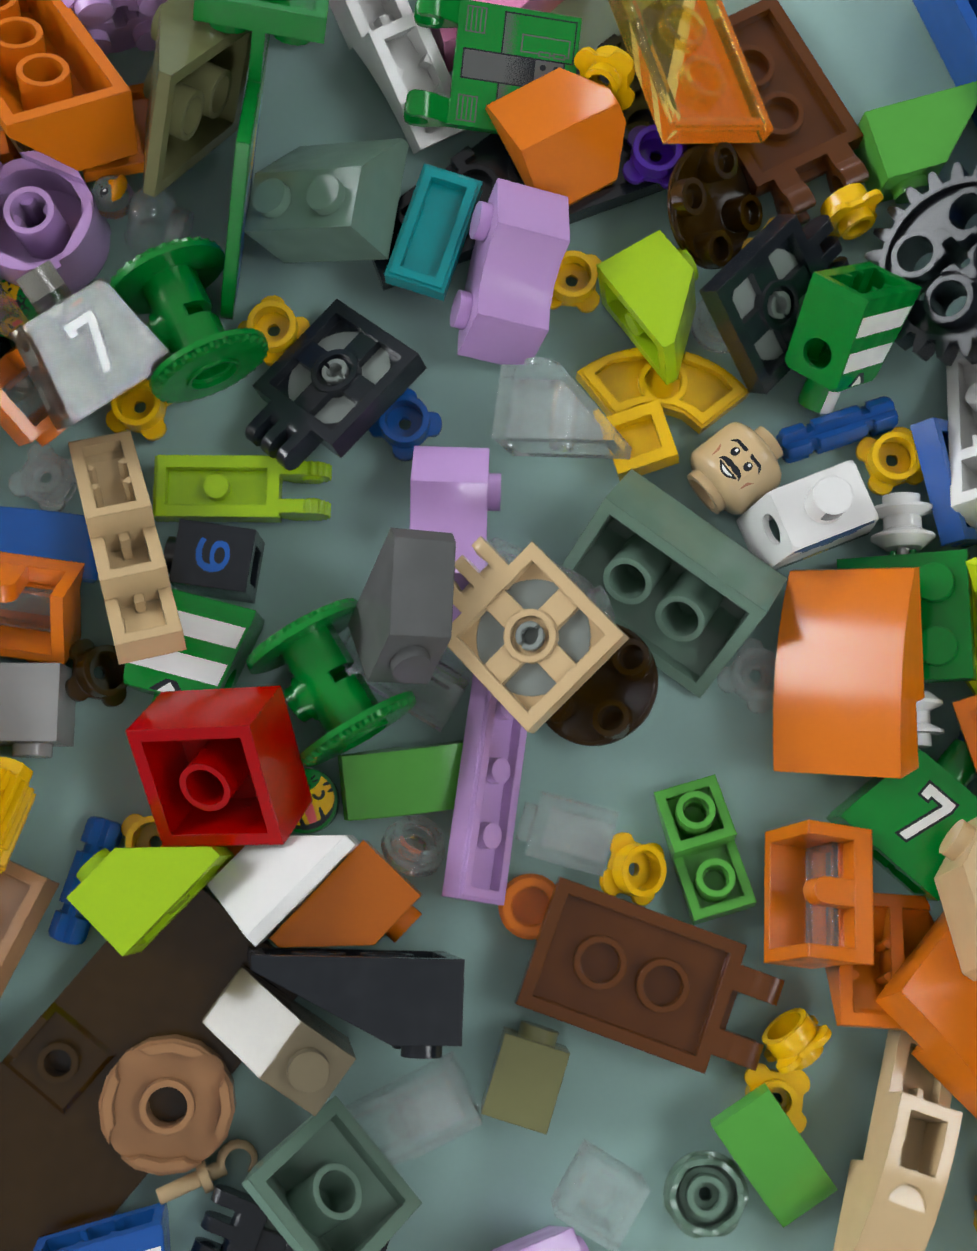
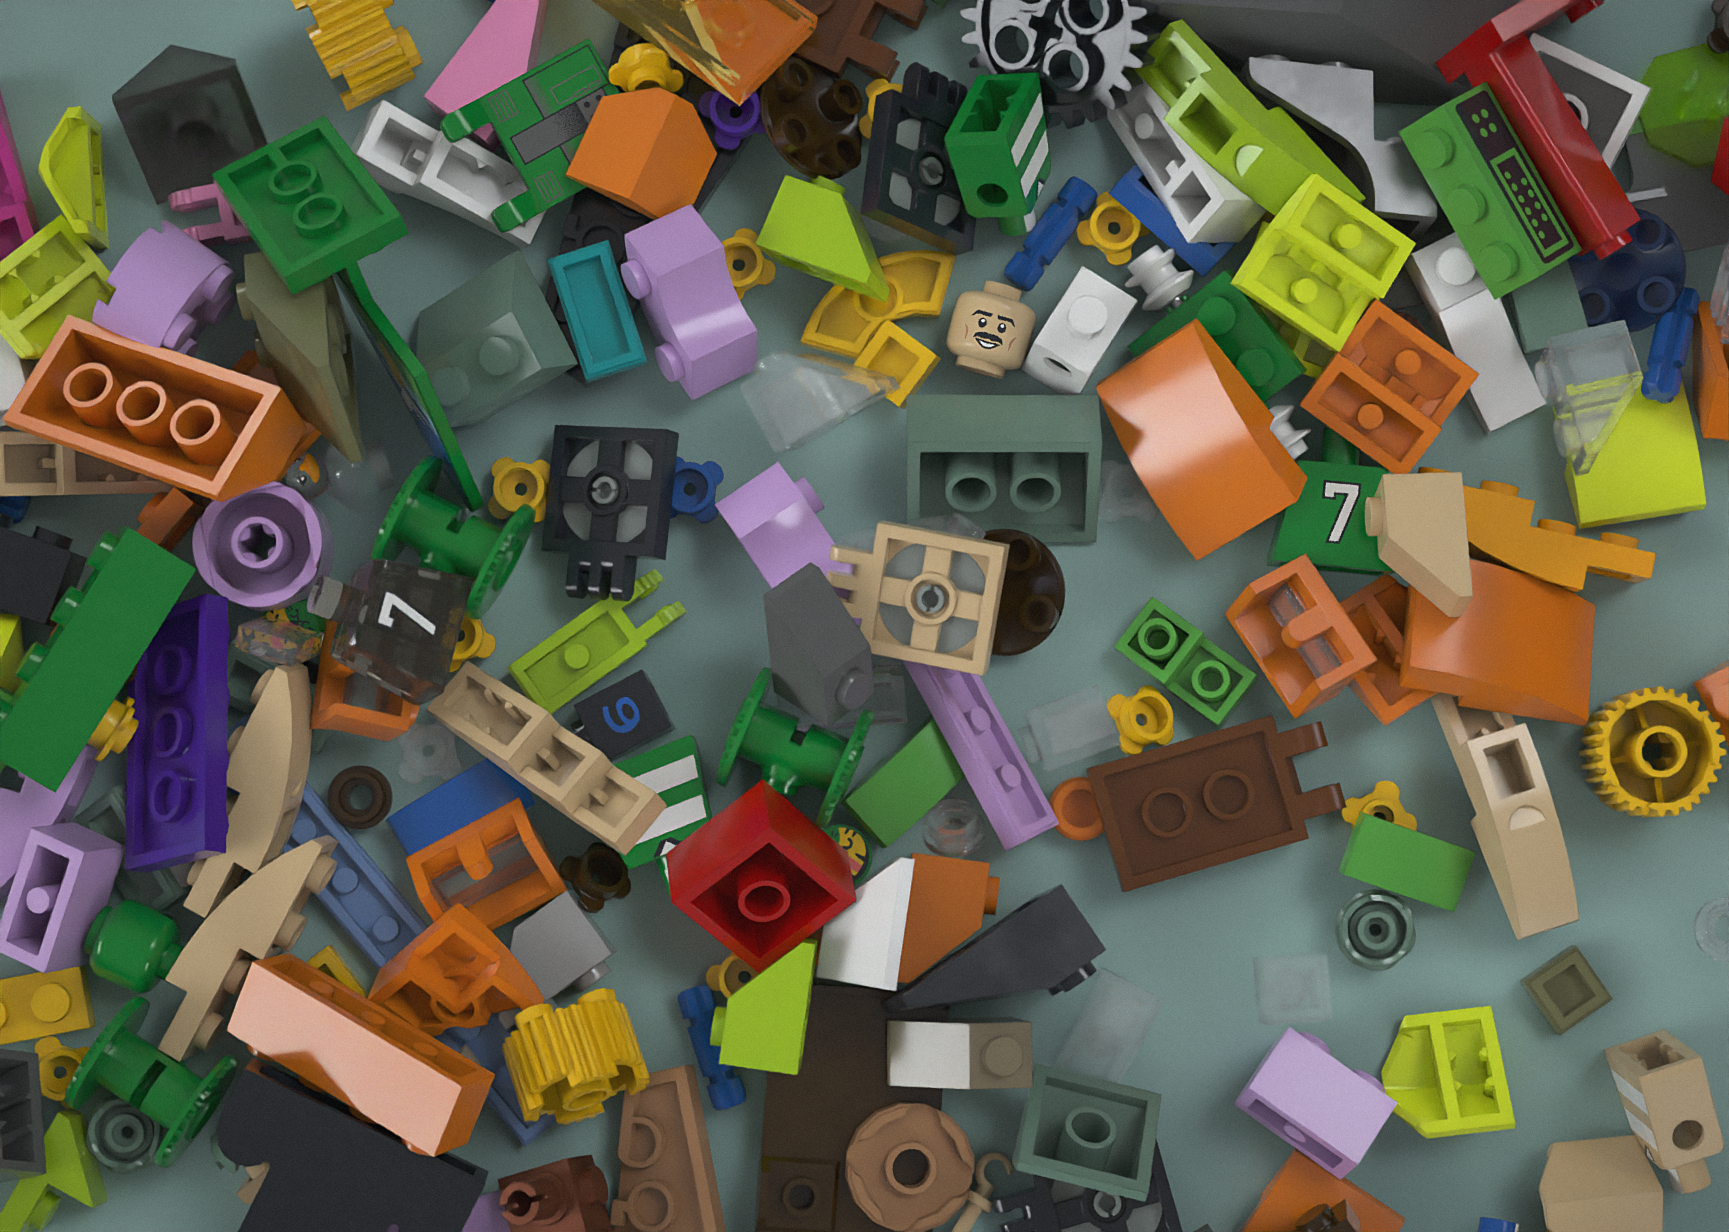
camera: 30 degrees left, 5 degrees up
(526, 1077) = (1172, 941): olive brick -> none
(794, 1040) = (1361, 761): yellow plate -> none
(852, 210) = (931, 36): yellow plate -> none

